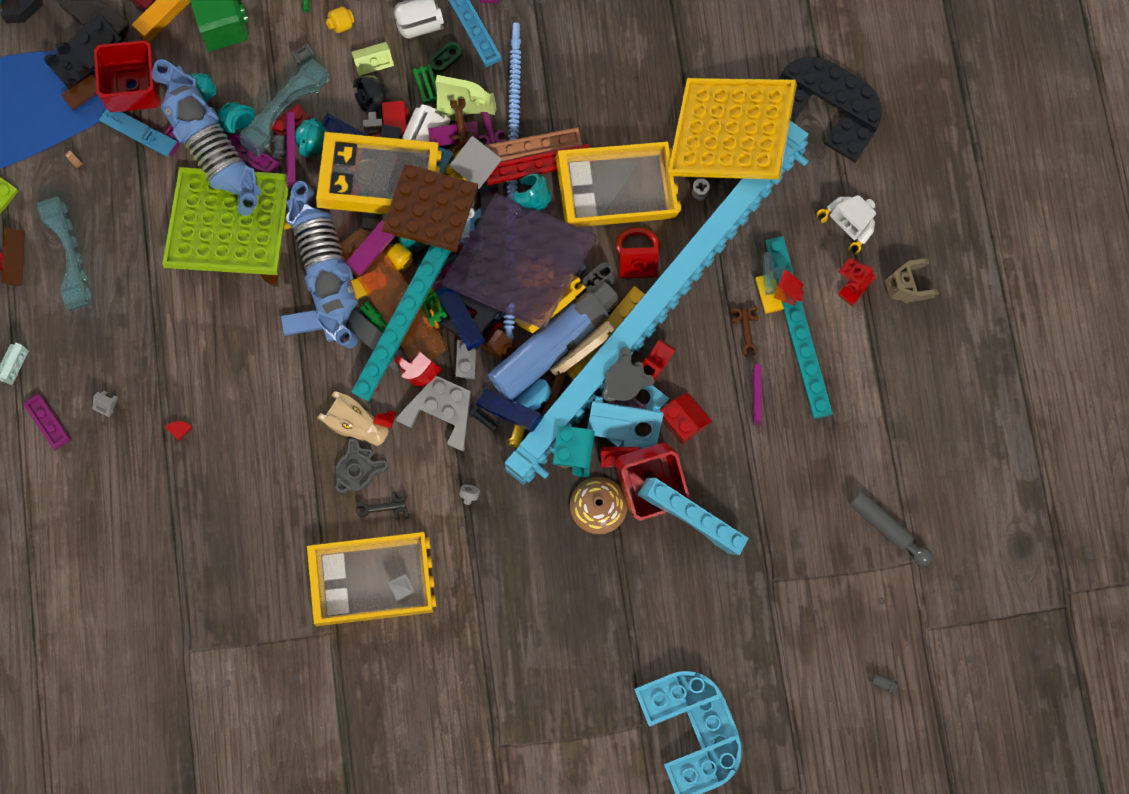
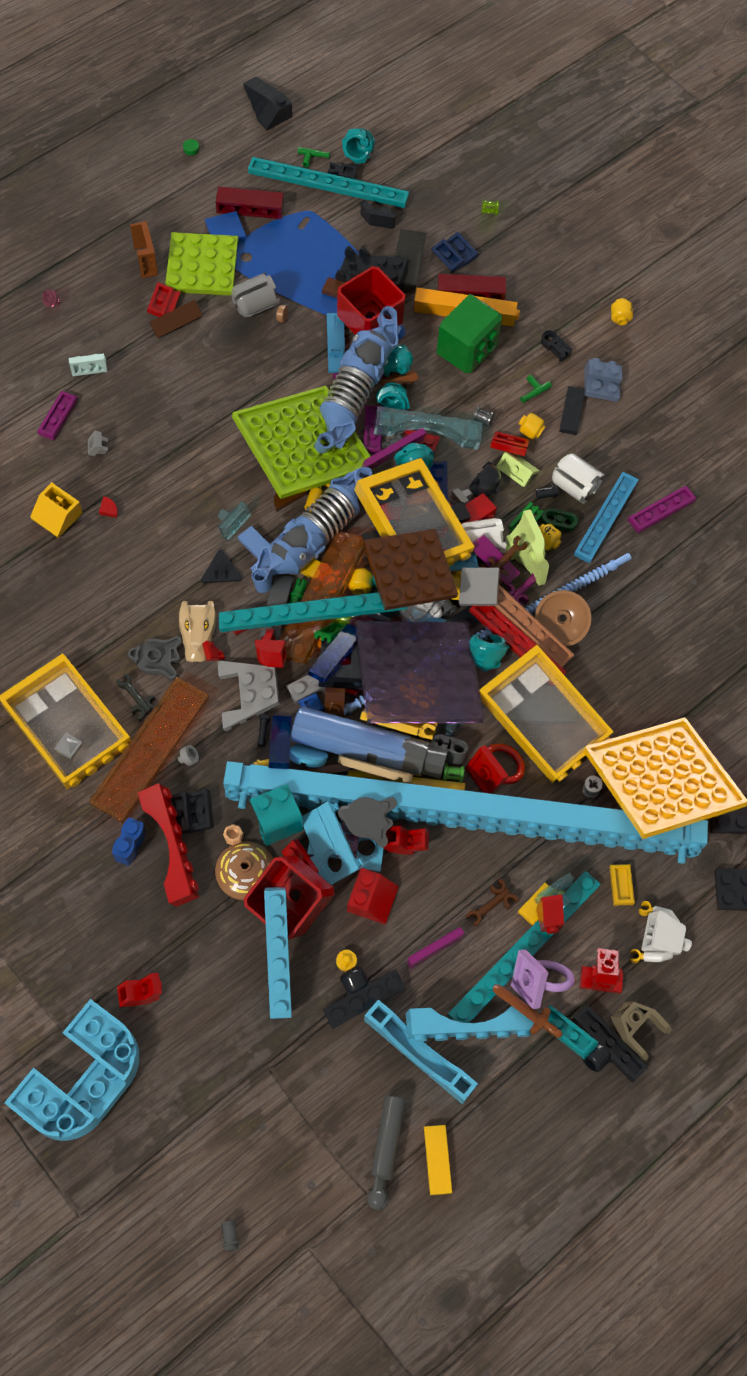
camera: 55 degrees right, 10 degrees down
(31, 167) = (255, 295): none -> light grey cylinder
(73, 288) = (178, 371): clear light blue arch -> none
(153, 476) = (56, 510): none -> yellow slope
(221, 93) = (405, 379): none -> dark orange plate
(264, 328) = (233, 520): none -> clear light blue tile
(290, 248) = (313, 495): none -> yellow piece
(306, 367) = (221, 570): none -> black piece
(345, 49) = (509, 443): none -> red plate
(369, 249) = (344, 552): magenta tile -> none
(413, 47) = (547, 492): none -> black pin
(442, 522) = (149, 749): none -> clear orange plate
(458, 72) = (551, 536): none -> yellow head
(484, 366) = (312, 702): none -> blue tile
(514, 581) = (131, 838): none -> blue brick
(520, 520) = (193, 811): none -> black slope
(552, 109) = (574, 608): none -> medium nougat dish
(562, 497) = (233, 834): none -> light nougat tile
(580, 563) = (179, 882): none -> red arch
(621, 288) = (453, 773): none -> bright green bush
(652, 645) = (140, 991): none -> red brick
(724, 469) = (346, 960): none -> yellow tile
(759, 474) = (361, 994): none -> black plate
(792, 220) = (621, 884): none -> yellow tile
(814, 463) = (434, 1065): none -> medium azure arch
(817, 435) = (427, 1023): none -> medium azure arch
(831, 336) = (531, 977): none -> lavender tile
(863, 351) = (540, 1020): none -> dark orange sword
(883, 337) = (572, 1035): none -> teal tile
(910, 315) = (610, 1046): none -> black plate
(919, 494) = (437, 1160): none -> yellow tile

